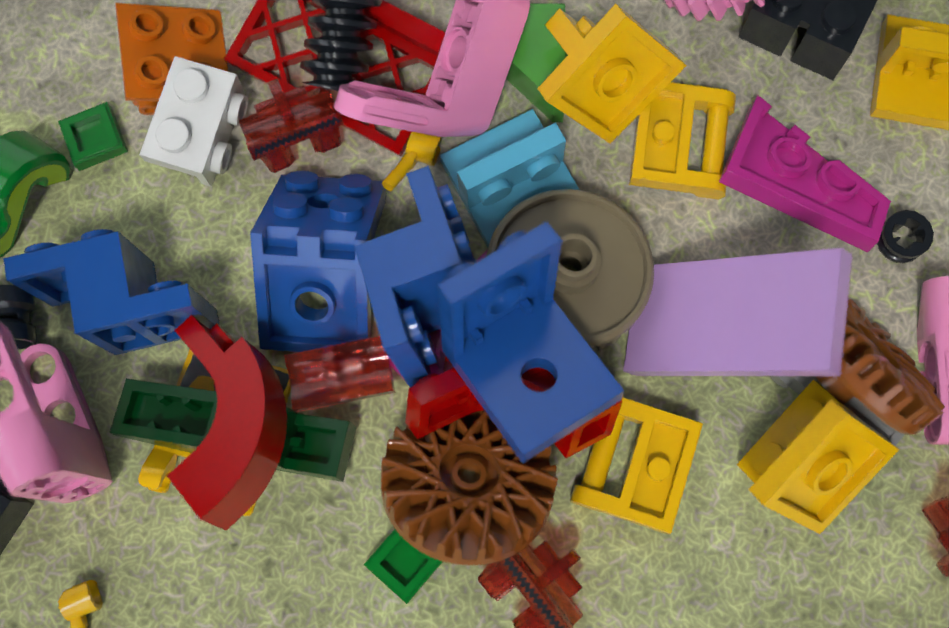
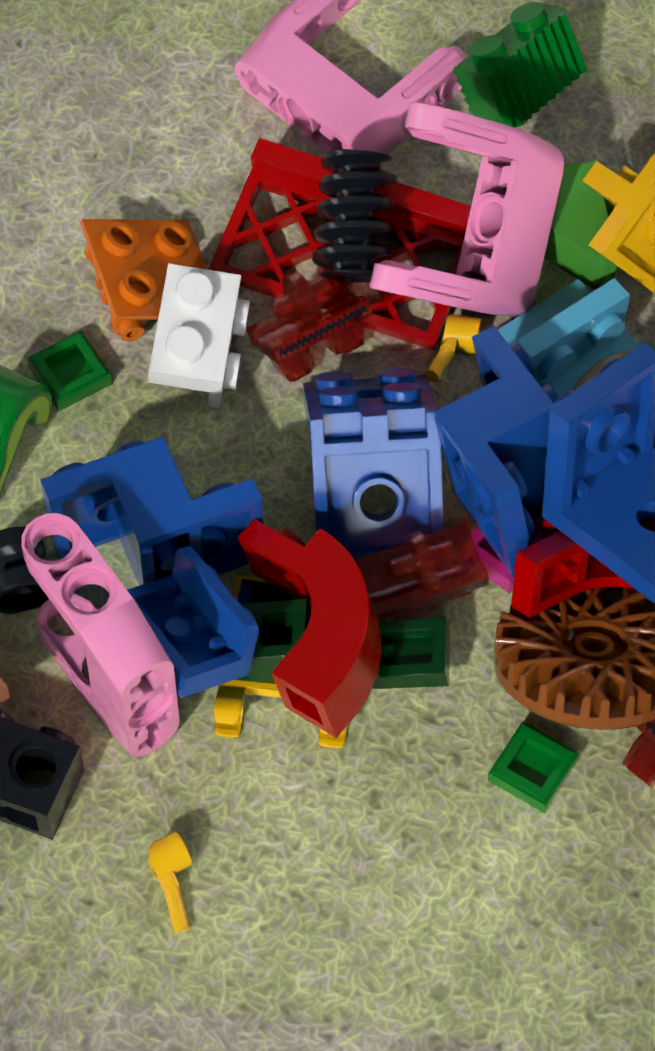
camera: 15 degrees left, 15 degrees down
(114, 412) = (198, 624): none -> blue bracket

